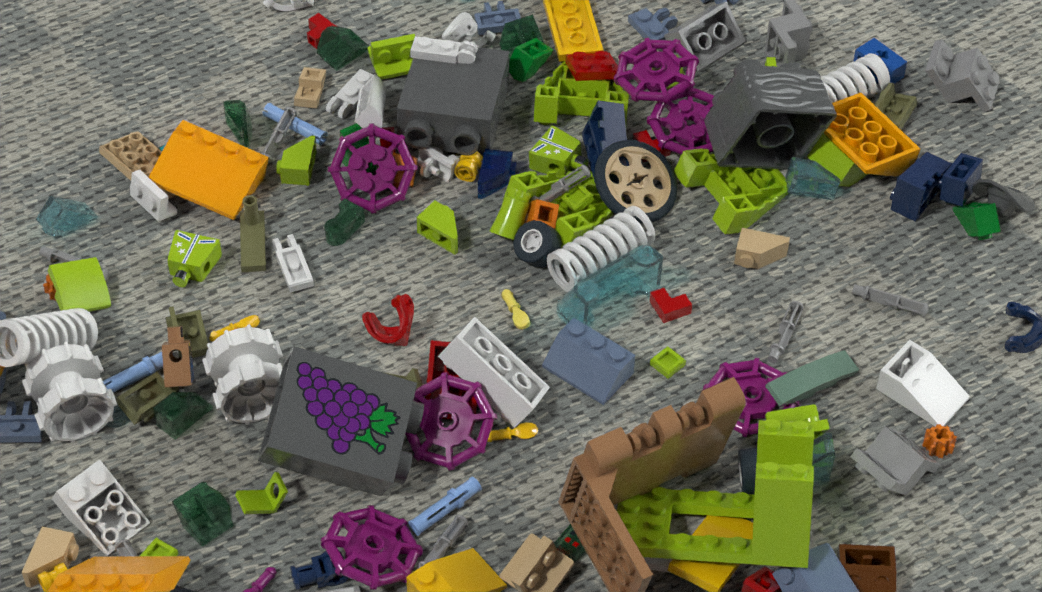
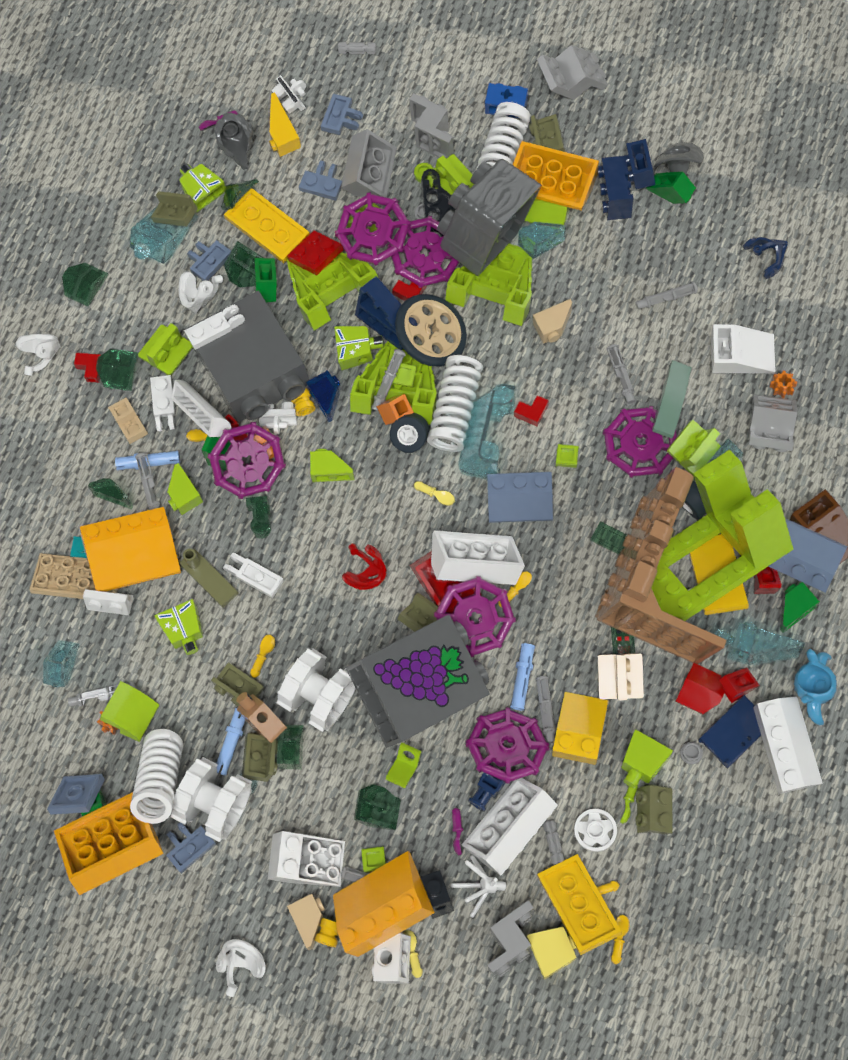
camera: 30 degrees left, 20 degrees up
(511, 213) = (374, 424): lime plant -> none

